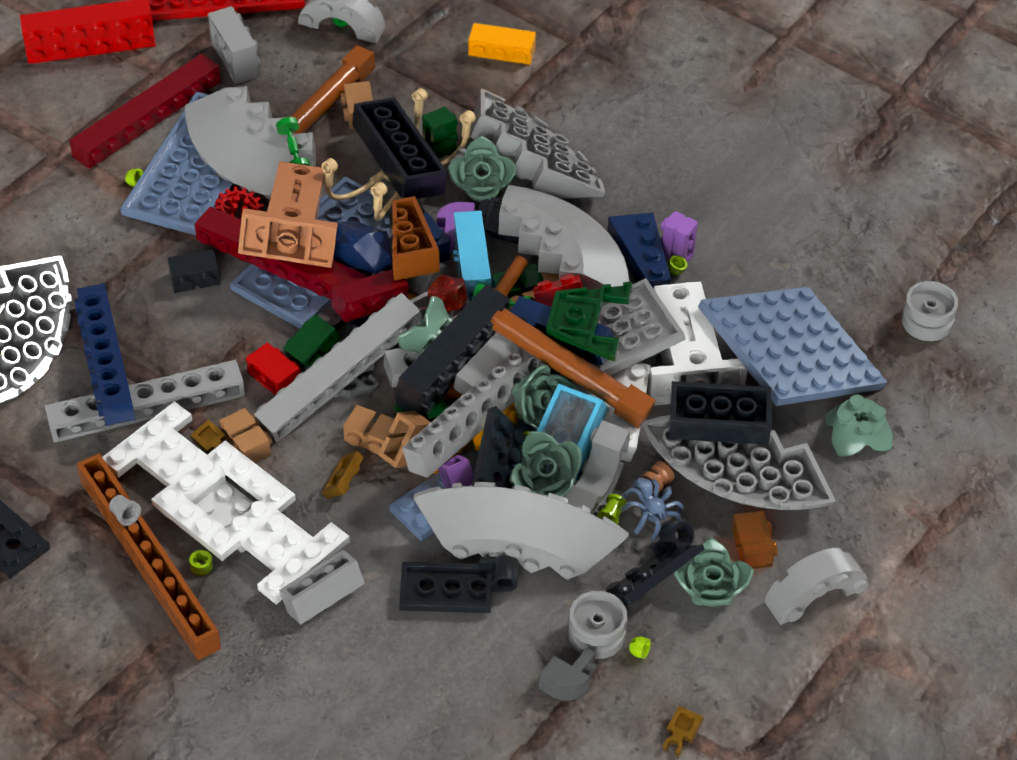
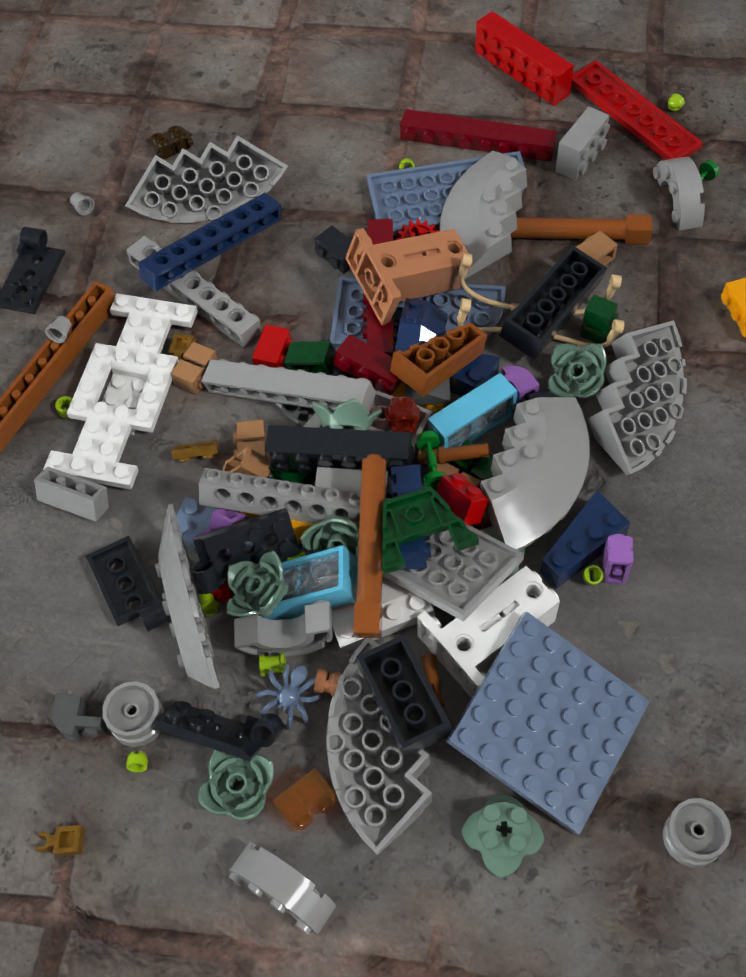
camera: 65 degrees right, 10 degrees up
(286, 127) = (497, 214): green wheel -> none

